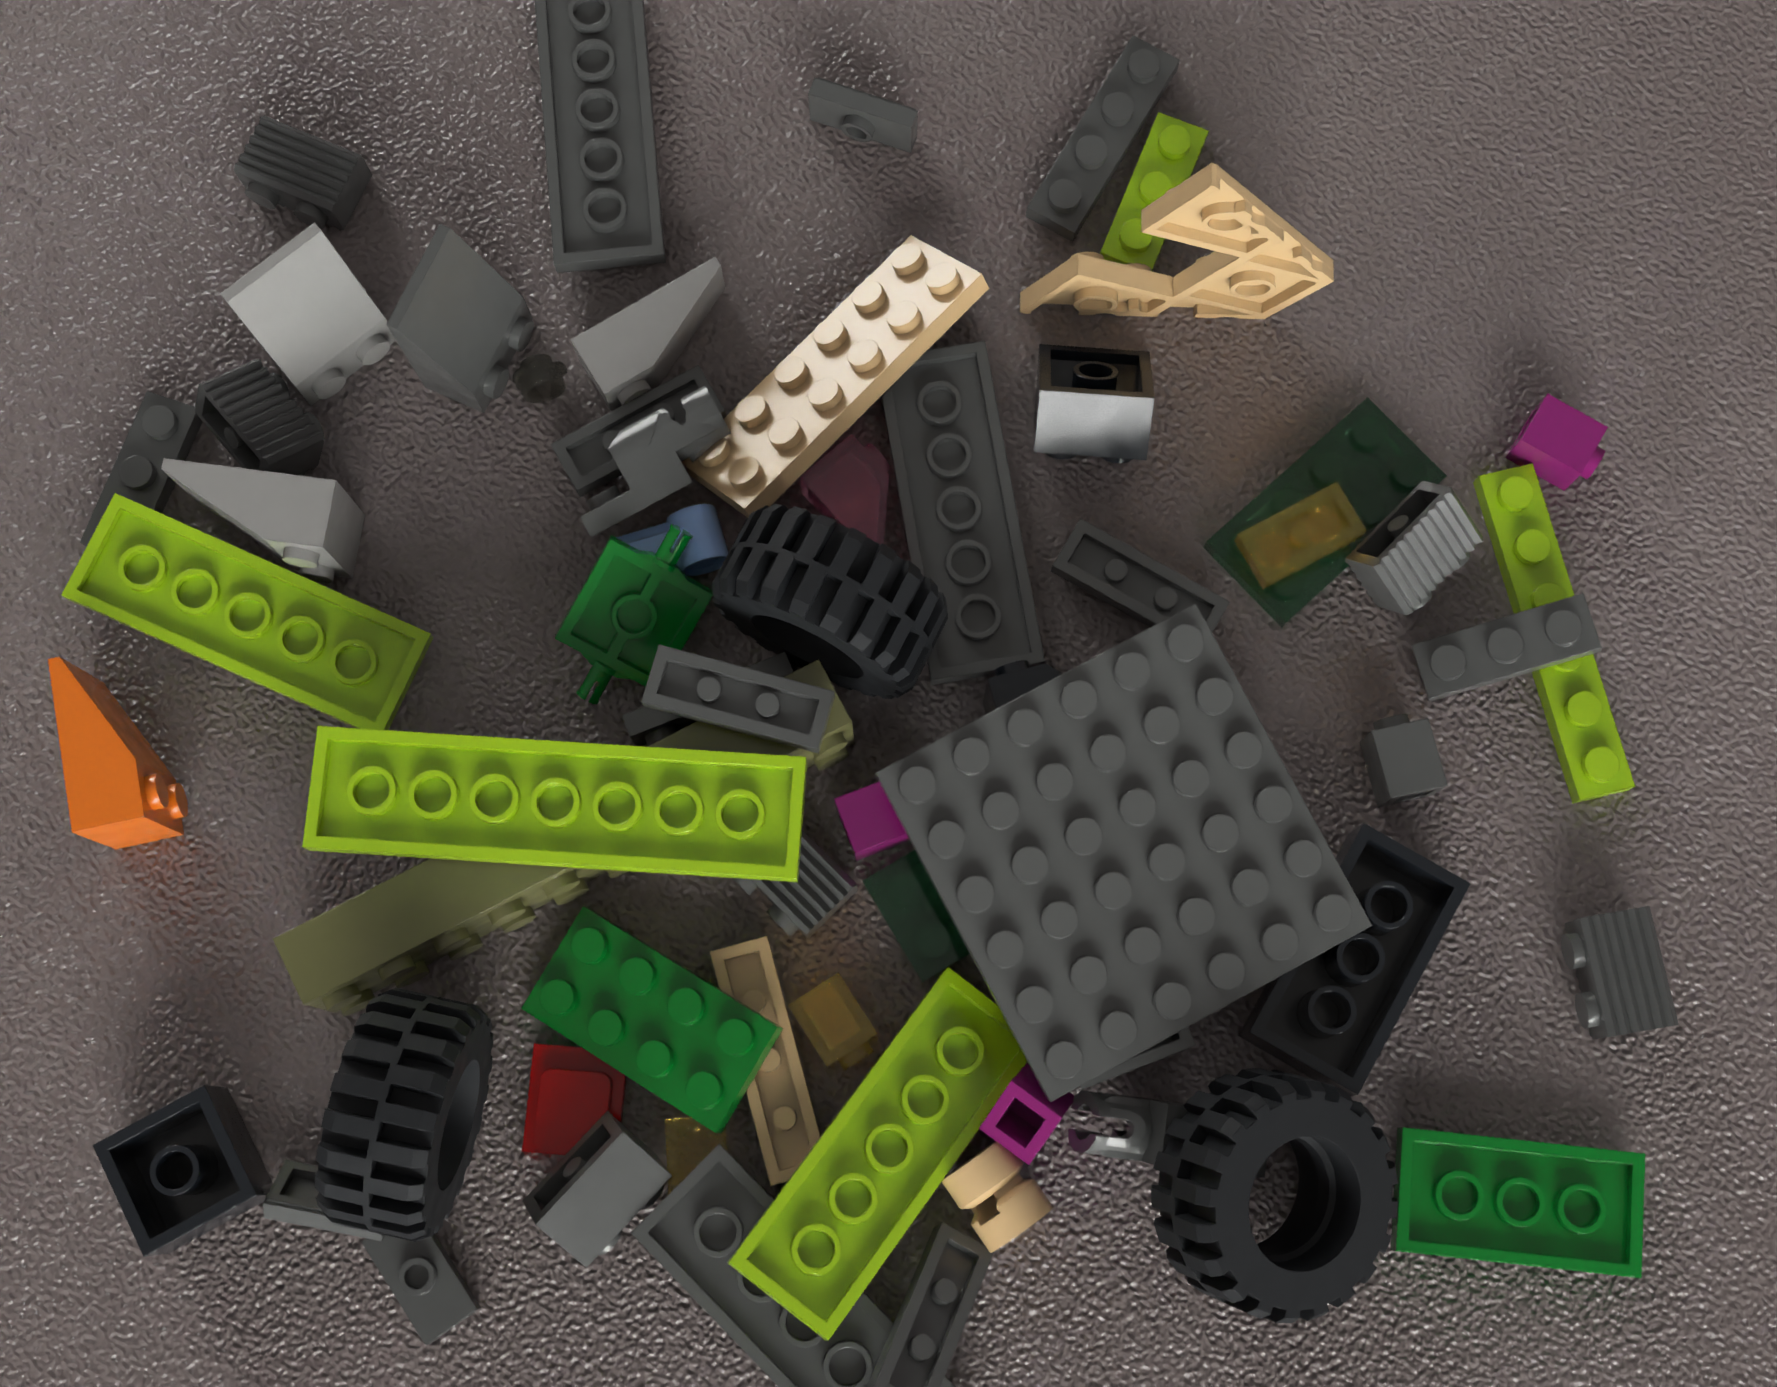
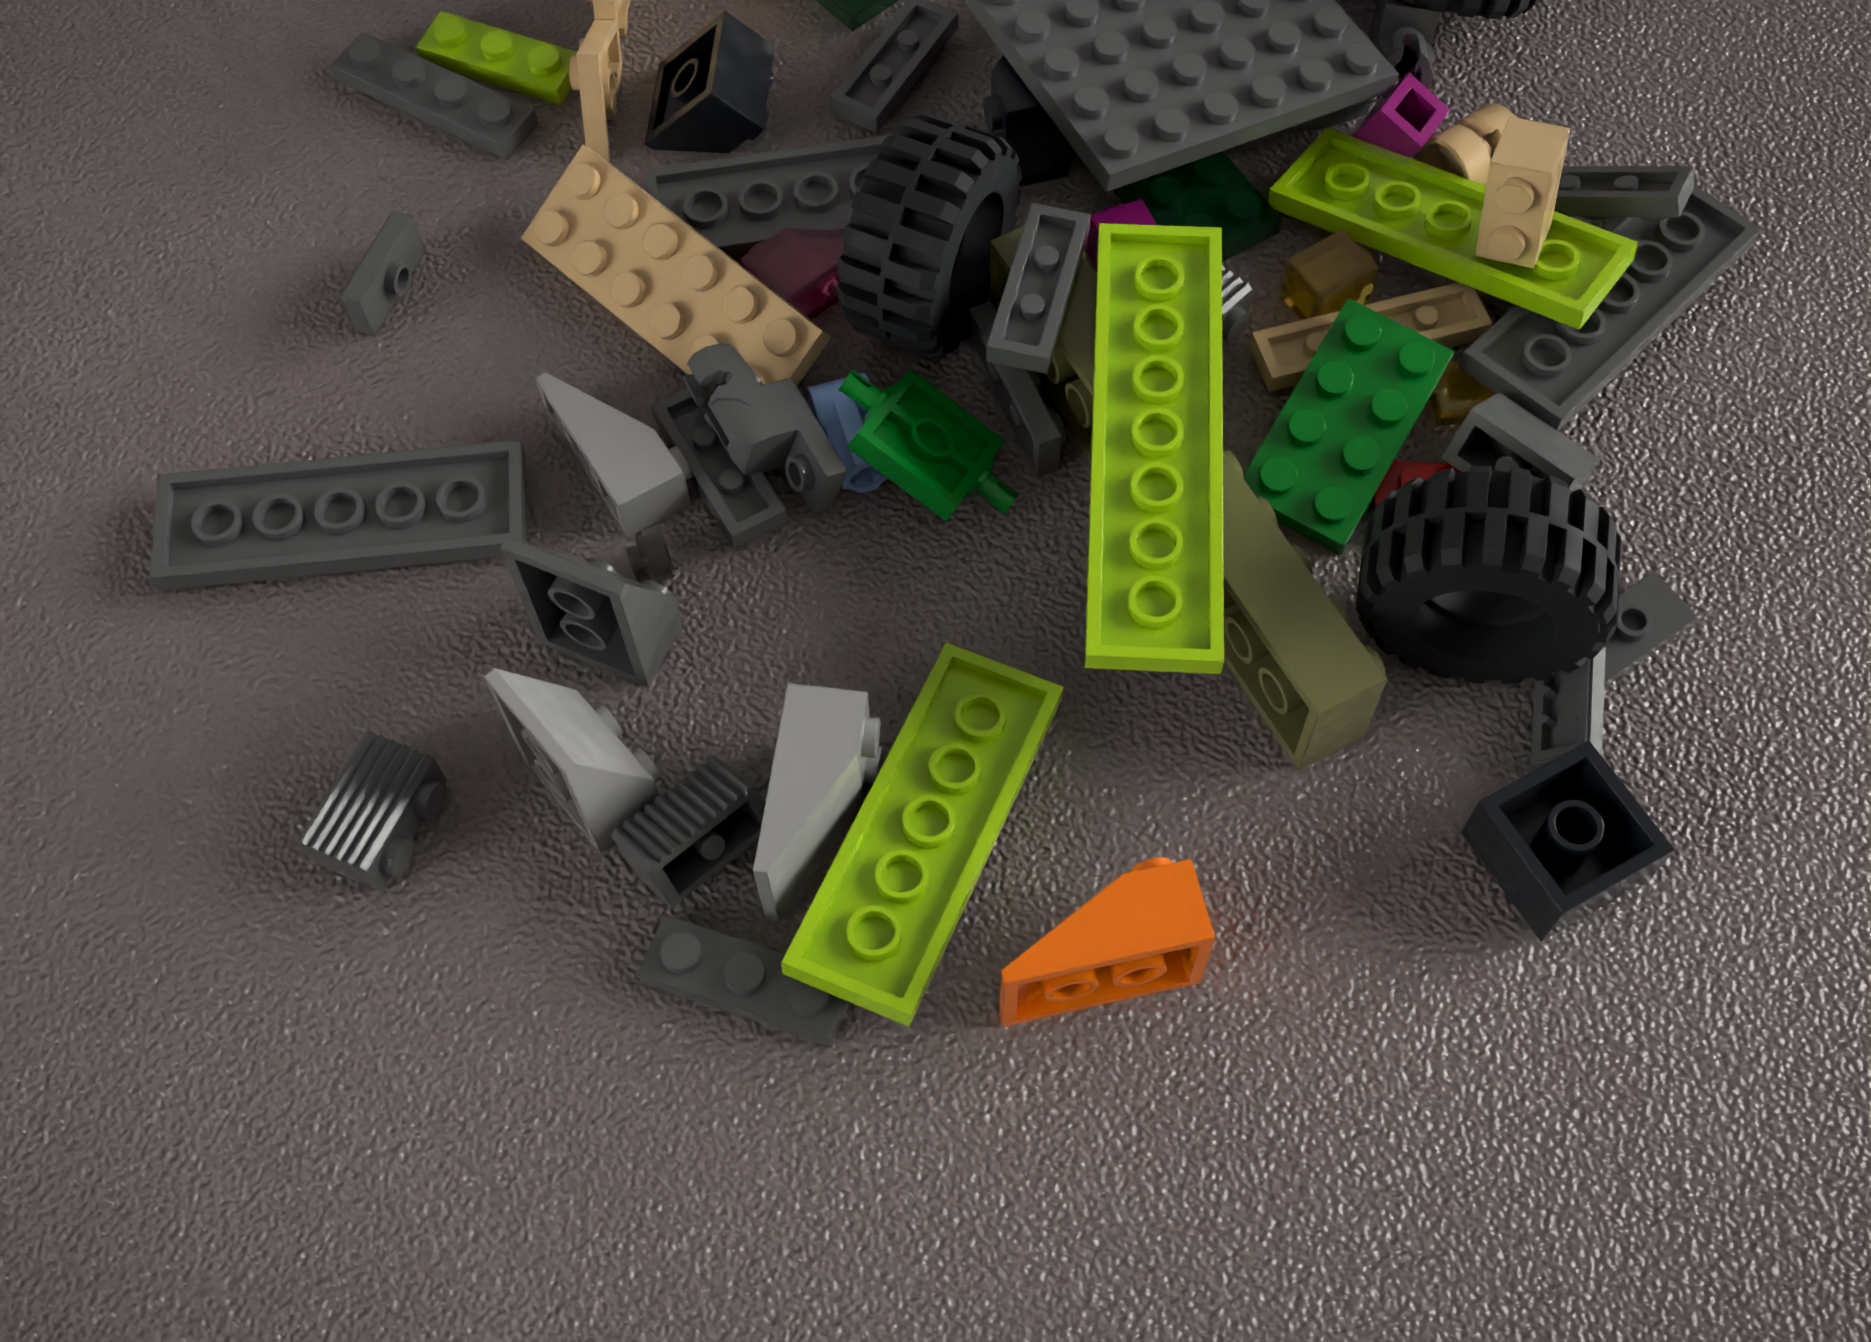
camera: 90 degrees left, 15 degrees down
(853, 1203) = (1521, 191): none -> tan brick

